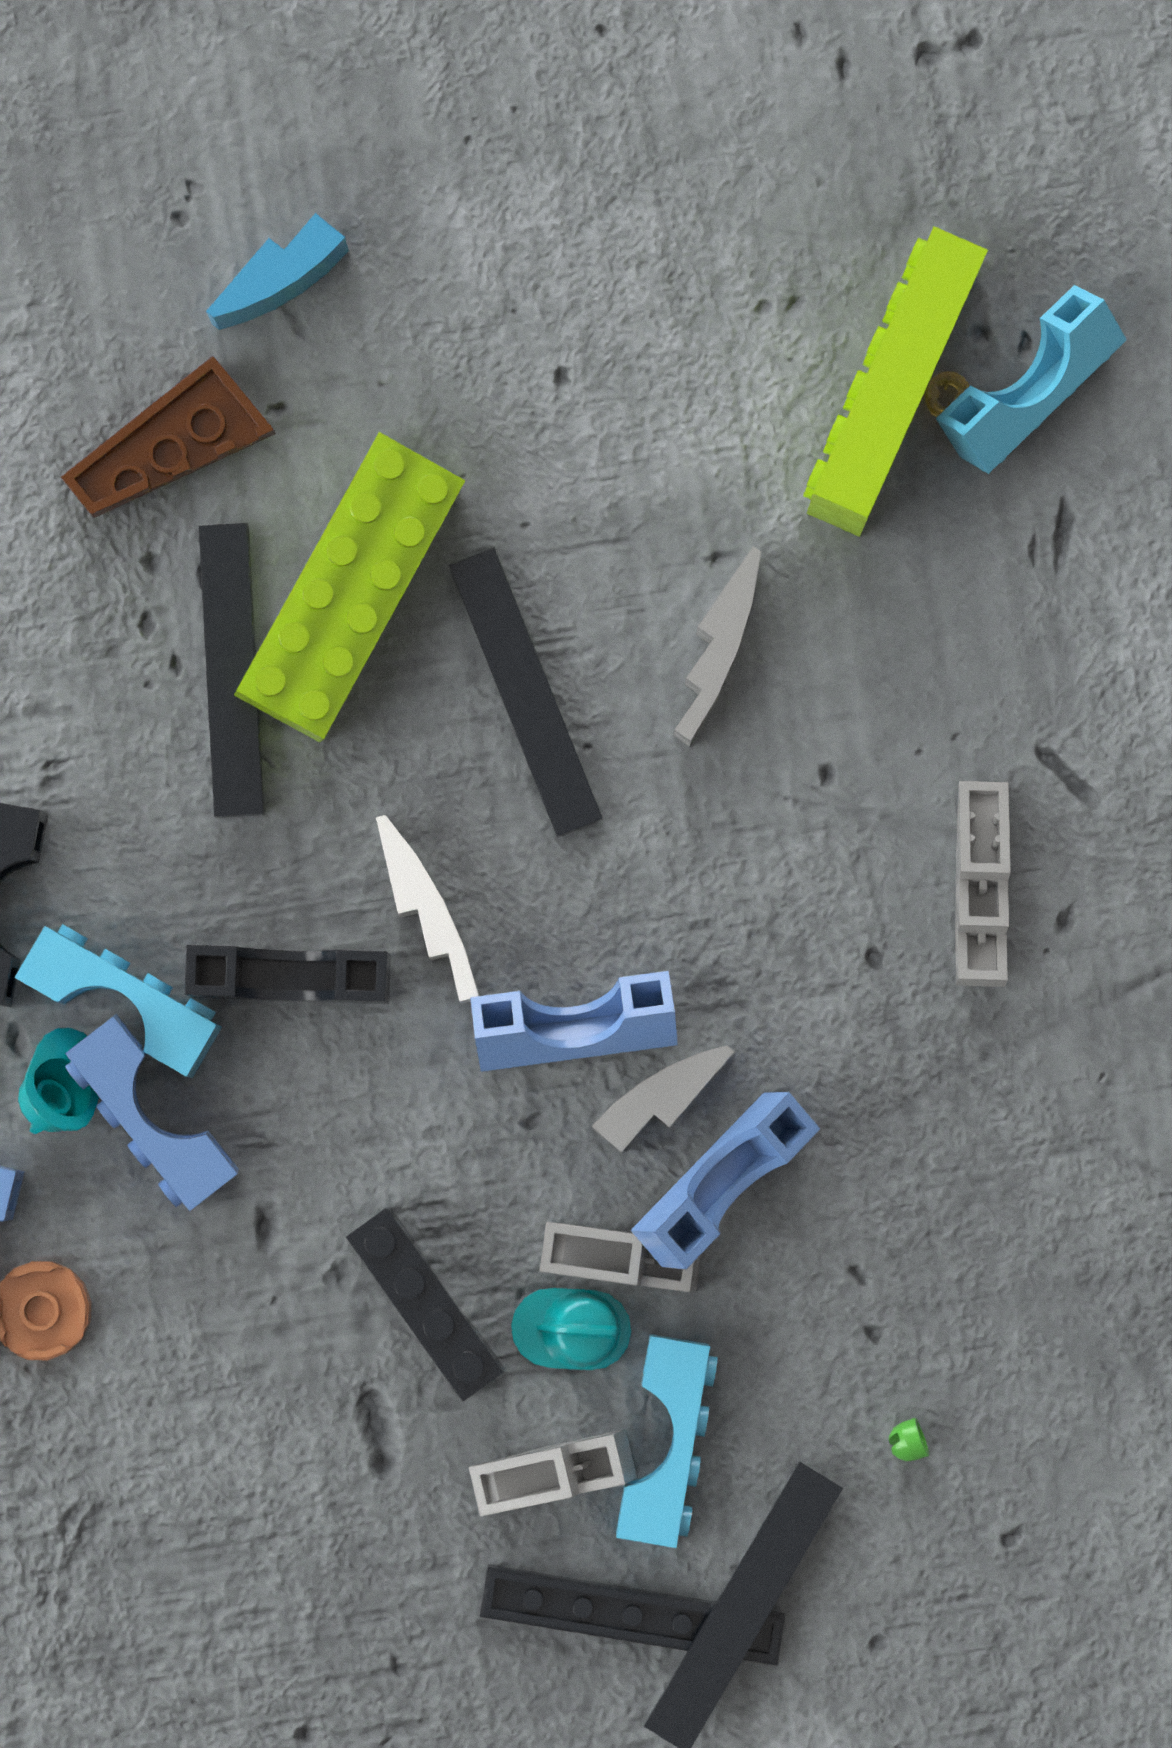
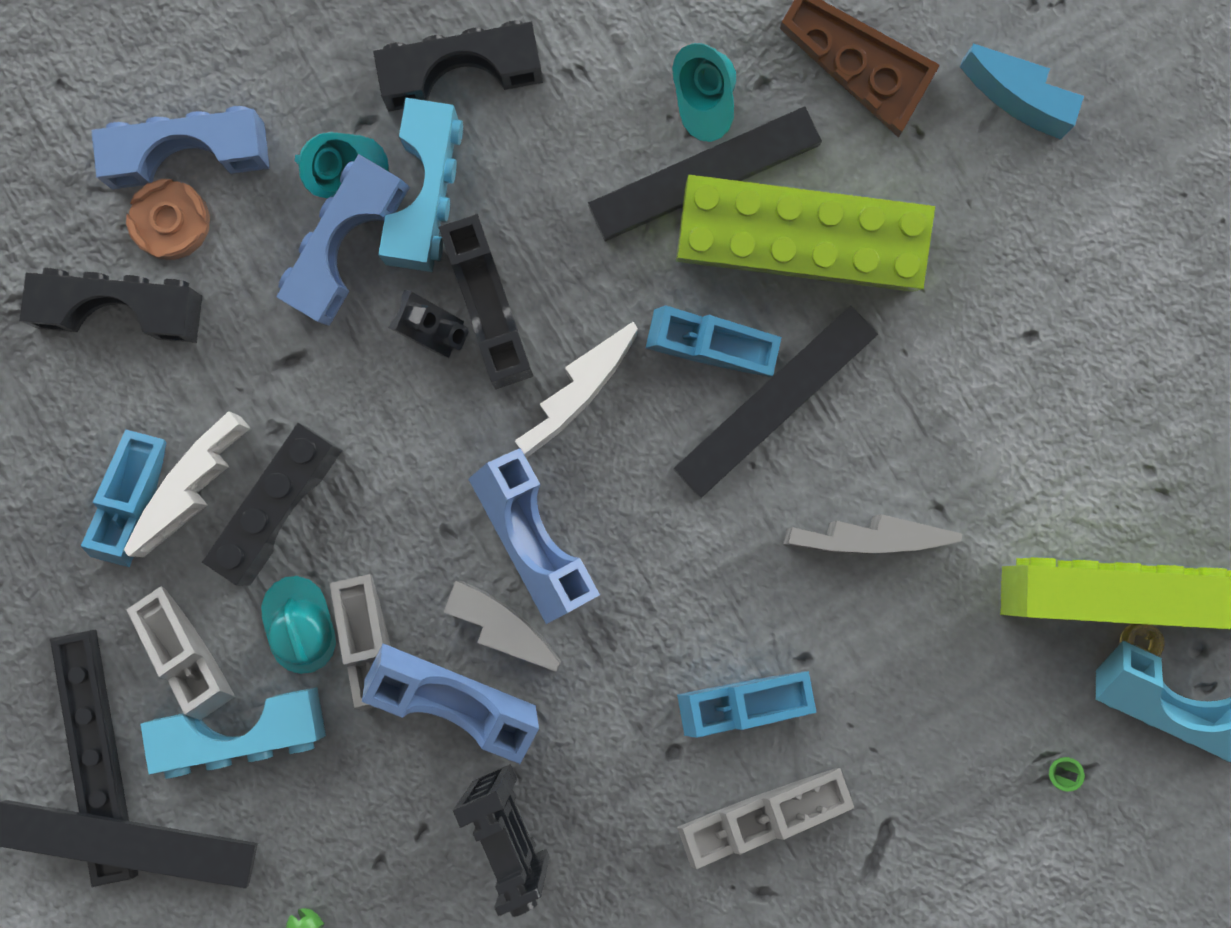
camera: 65 degrees right, 0 degrees up
(93, 1465) = (65, 302): none -> black arch
(138, 633) = (704, 91): none -> teal piece
(289, 1048) = (429, 325): none -> black hips
(352, 1472) = (124, 496): none -> dark azure slope
(375, 1411) = (178, 494): none -> white slope
(430, 736) = (713, 341): none -> dark azure slope
(850, 857) = (746, 704): none -> dark azure slope
(940, 1165) = (509, 848): none -> black fence
(1050, 529) = (1070, 765): none -> bright green hinge

